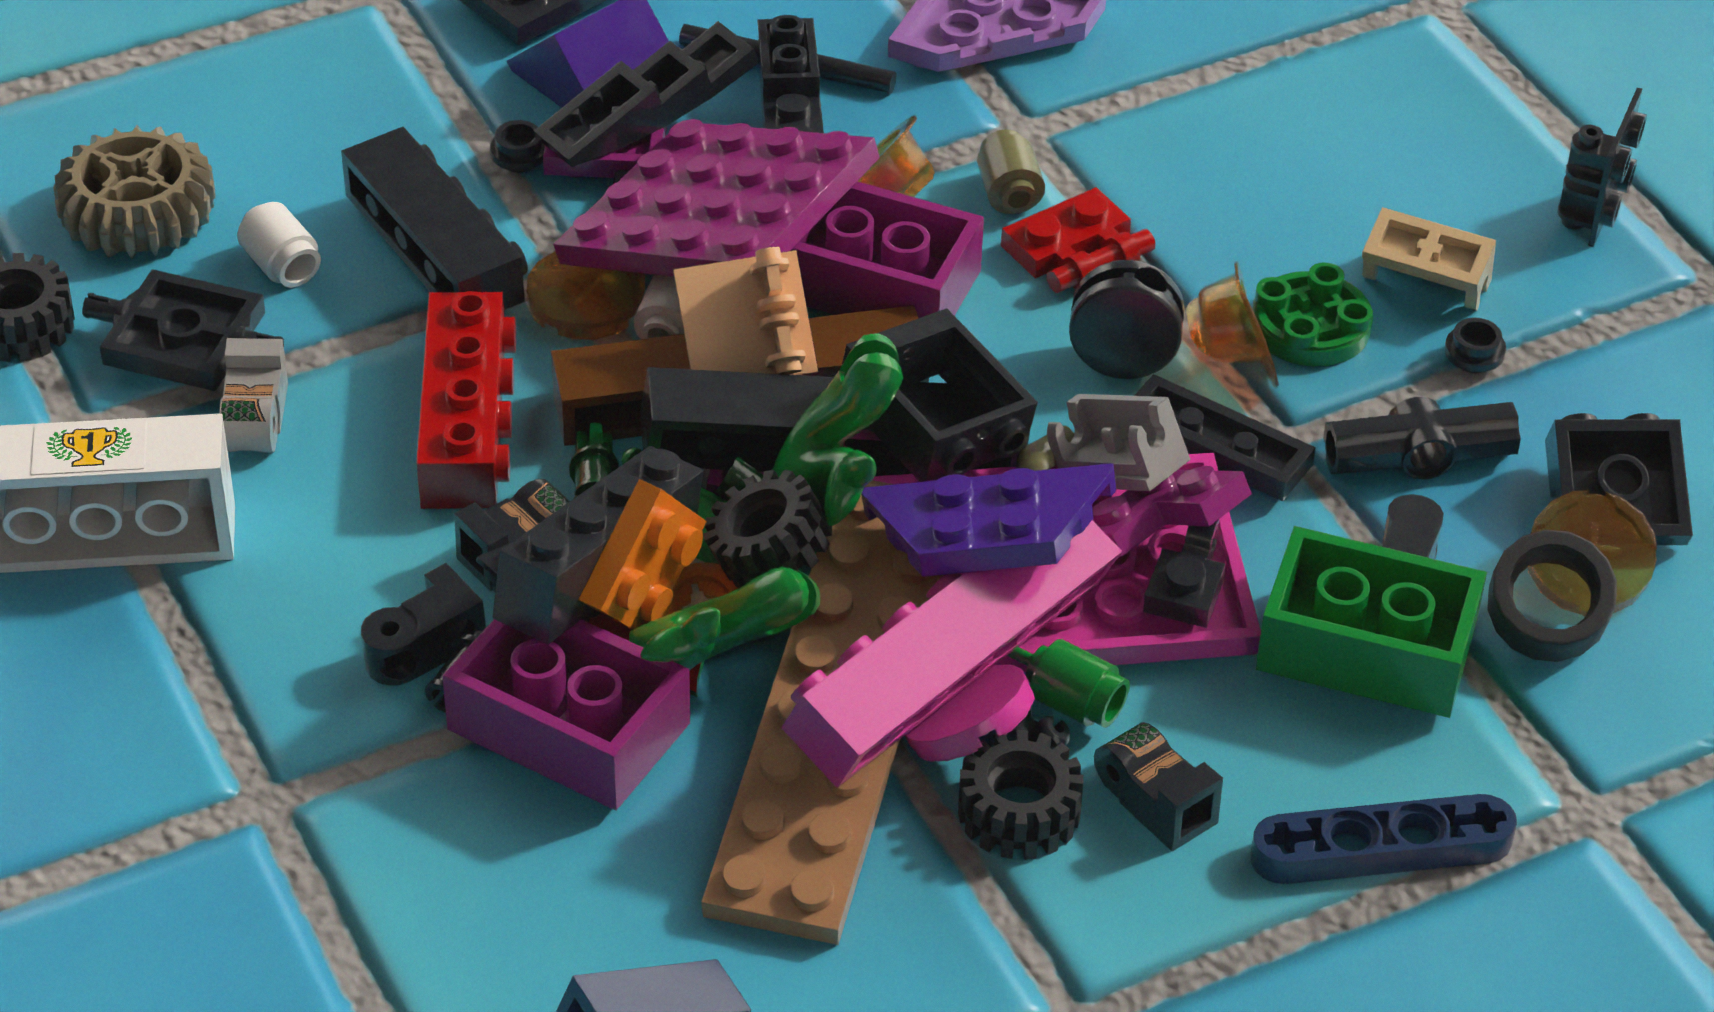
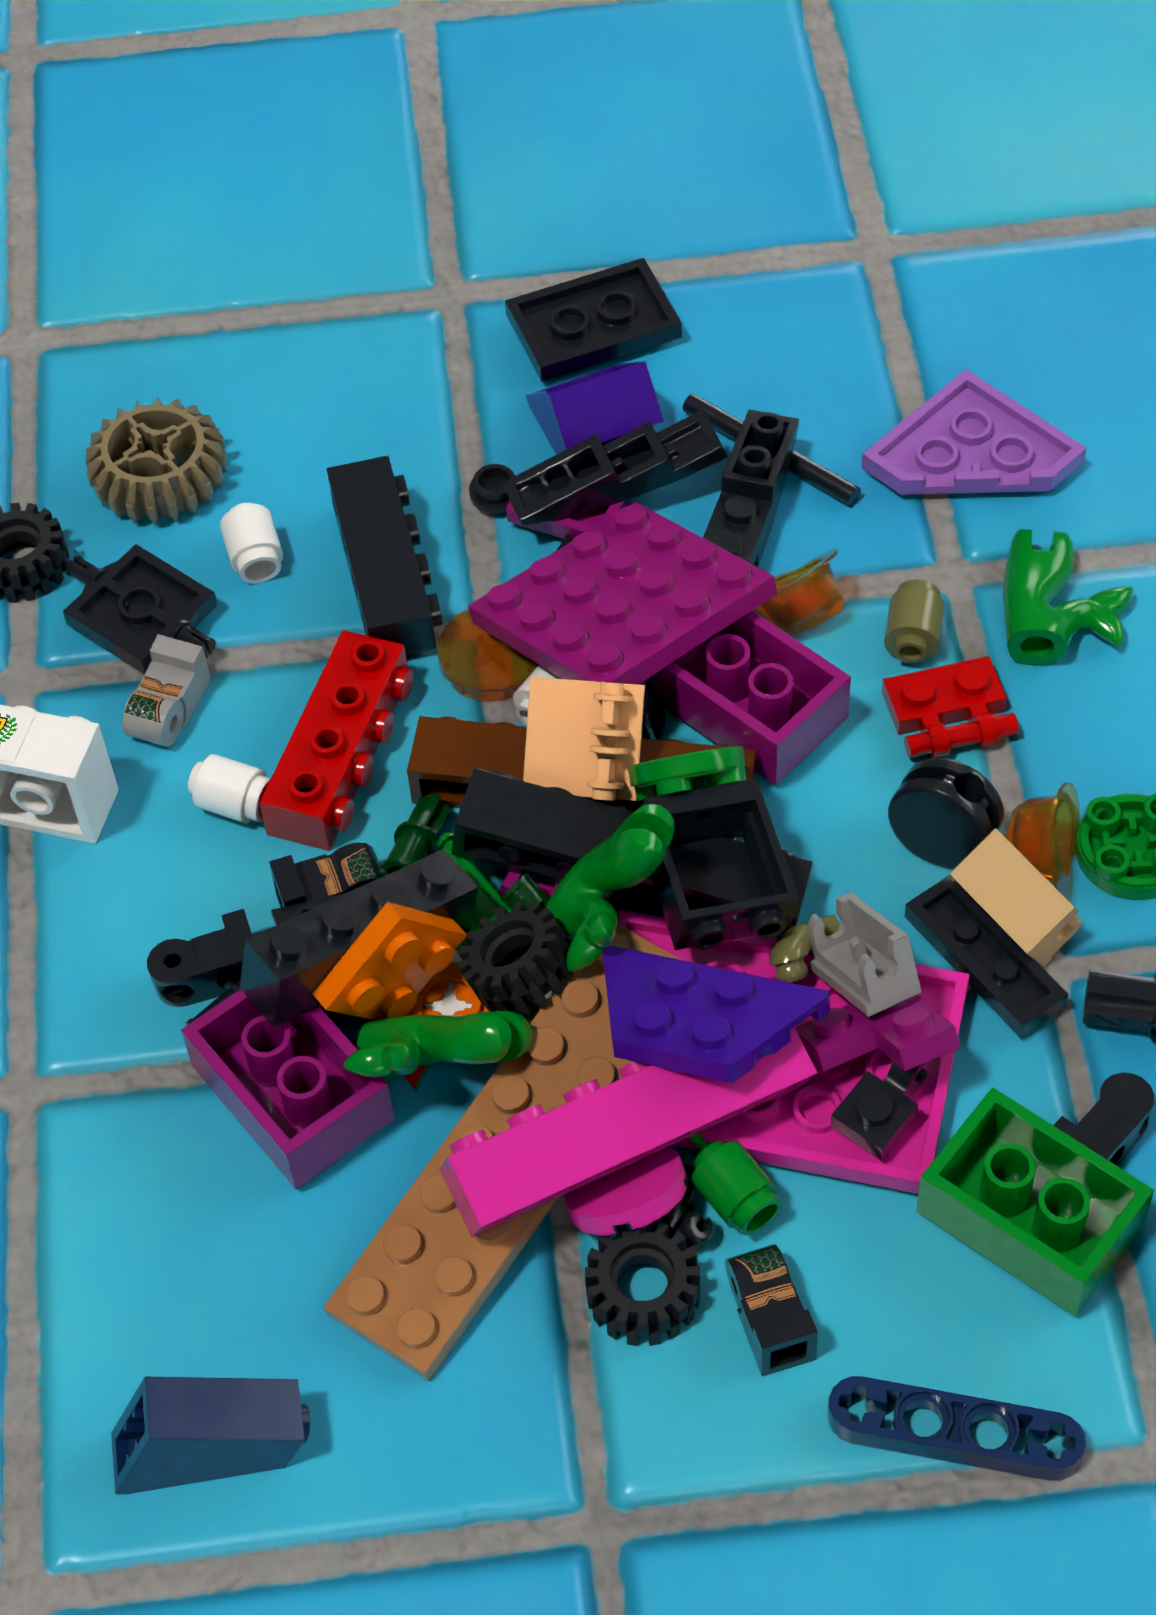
camera: 25 degrees right, 10 degrees up
(370, 467) = (228, 788): none -> white brick
(868, 315) = (688, 771): none -> green tile
(1135, 154) = (1032, 581): none -> green piece
(1231, 370) = (1018, 897): none -> tan hinge

